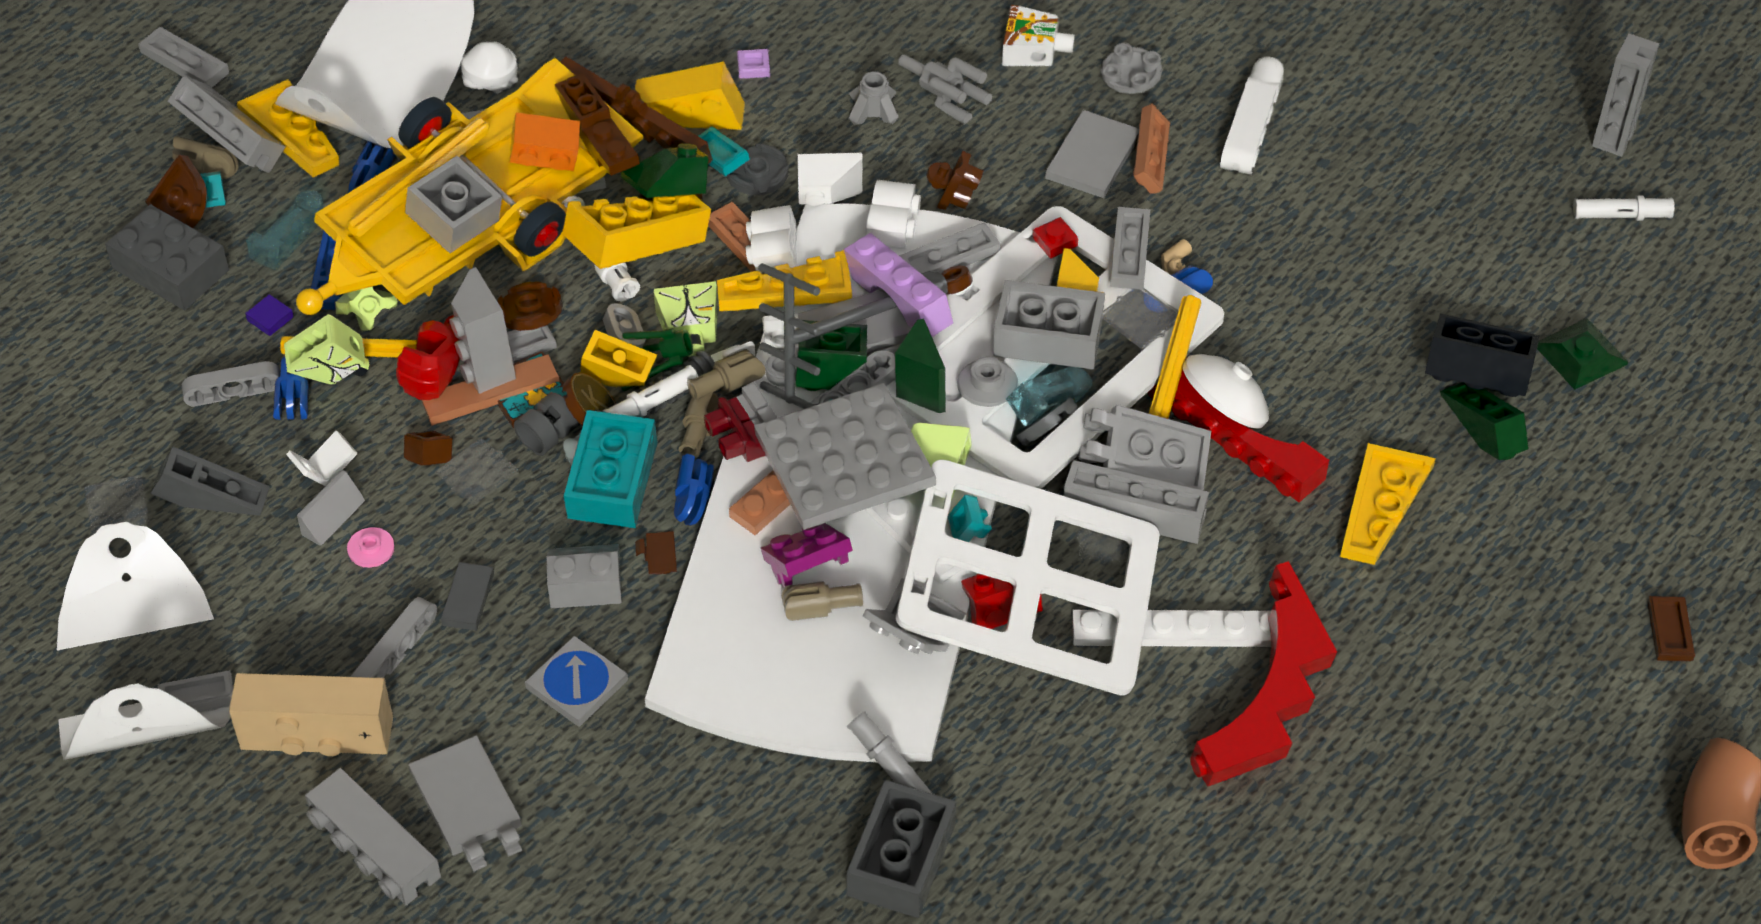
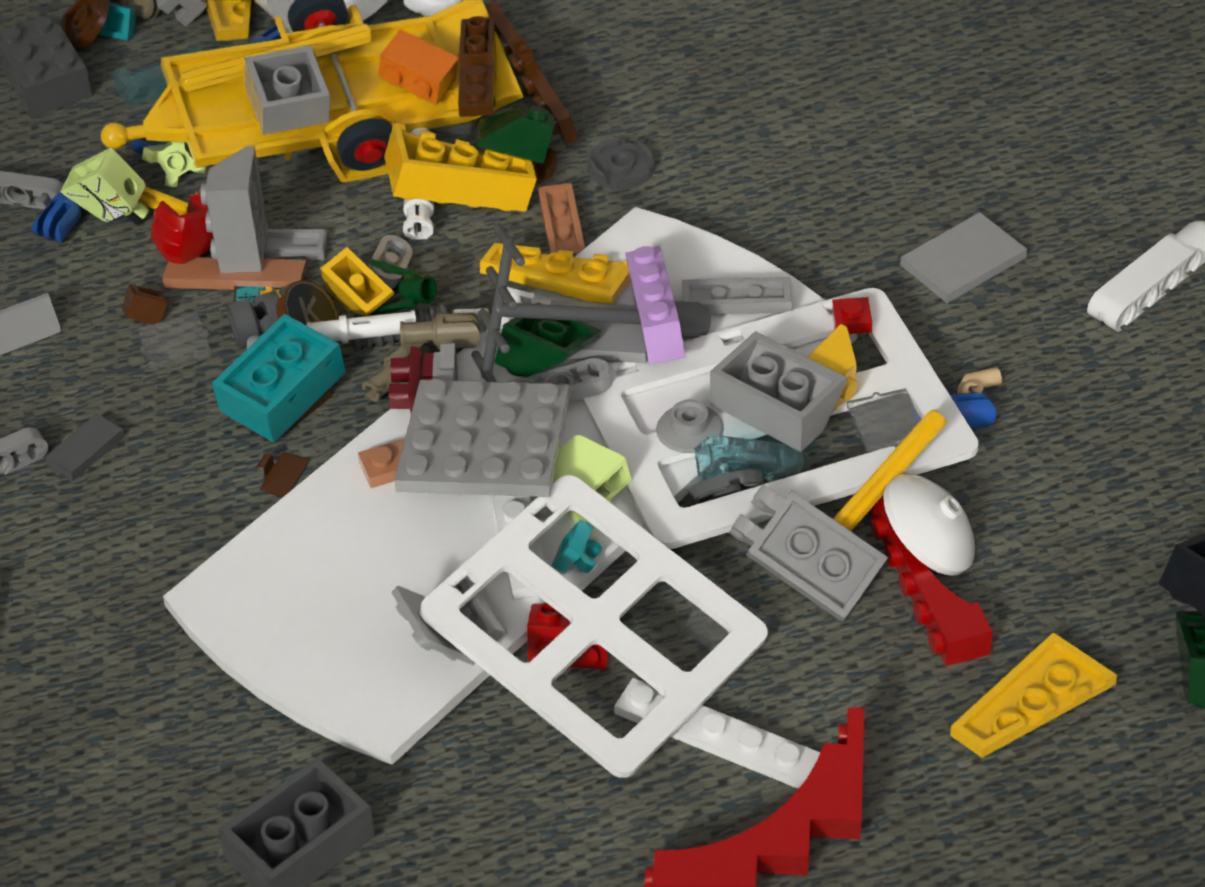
camera: 30 degrees right, 5 degrees down
(269, 315) = (90, 143): dark purple tile -> none
(327, 460) = (53, 282): white bracket -> none
(370, 547) = (35, 373): bright pink piece -> none
(530, 306) = (322, 214): reddish brown tile -> none
(576, 681) = (124, 559): tile -> none
(584, 576) = (194, 466): light grey slope -> none
(689, 308) = (456, 270): yellowish green torso -> none
(692, 489) = (345, 426): blue arm -> none
(695, 97) = (599, 79): yellow wedge -> none
(725, 153) = (593, 134): teal tile -> none
(753, 63) = (685, 69): lavender tile -> none
(772, 237) = (577, 224): white brick -> none
(805, 550) = (383, 513): magenta piece -> none
(818, 600) = (379, 567): dark tan arm -> none
(829, 177) = (669, 188): white slope -> none
(873, 99) = (773, 135): light grey rock -> none
(885, 753) = (341, 737): light grey pin -> none
(892, 212) = (705, 240): white brick -> none
(920, 370) = (617, 384): dark green slope -> none
(949, 84) = (857, 143): light grey plant -> none
(956, 183) = (795, 233): reddish brown hips -> none
(957, 278) = (726, 321): reddish brown tile -> none
(1033, 38) = (973, 129): white torso -> none
(1130, 248) = (917, 350): light grey plate -> none
(1131, 69) = (1057, 190): light grey dish -> none
(1151, 149) = (1023, 271): nougat plate -> none
(1170, 507) = (789, 612): light grey brick -> none

